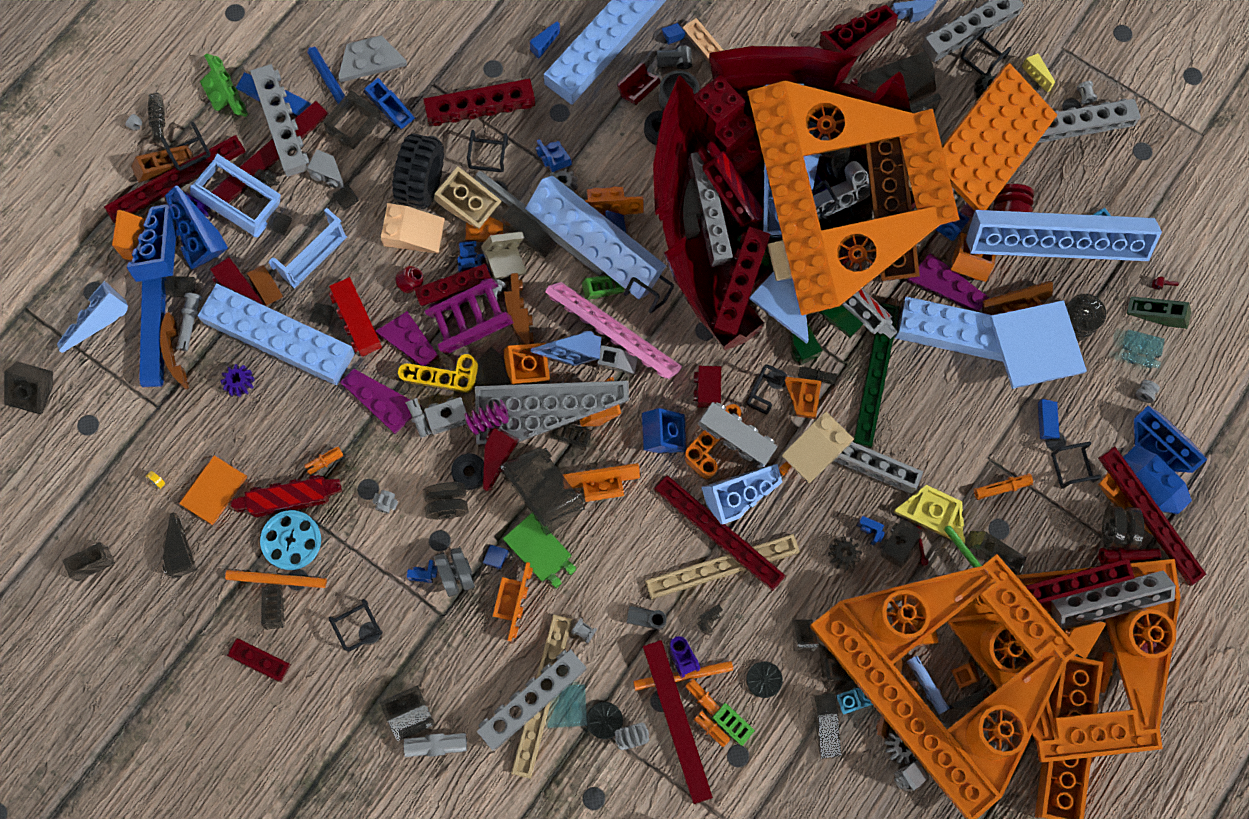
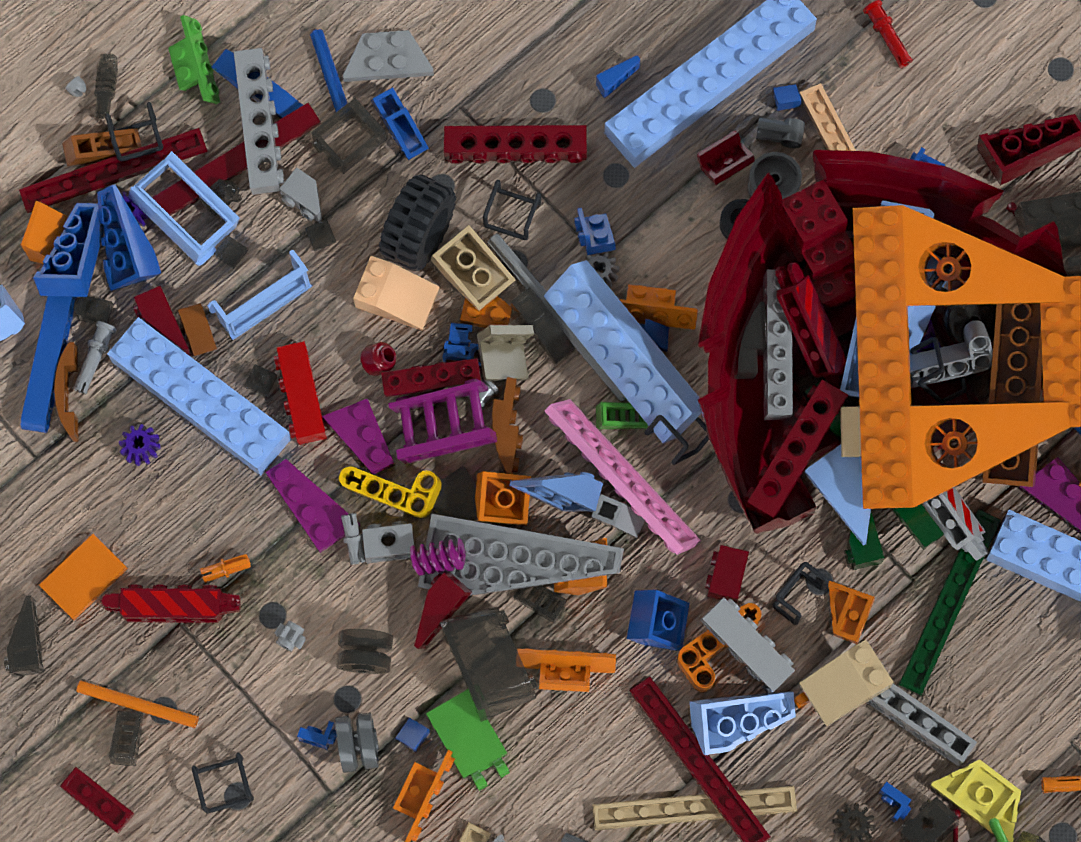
camera: 20 degrees right, 0 degrees up
(155, 479) = (16, 549): yellow tile -> none
(296, 547) = (169, 670): medium azure wedge -> none
(464, 461) = (391, 609): black tyre -> none
(813, 374) = (871, 587): clear smoke axle -> none

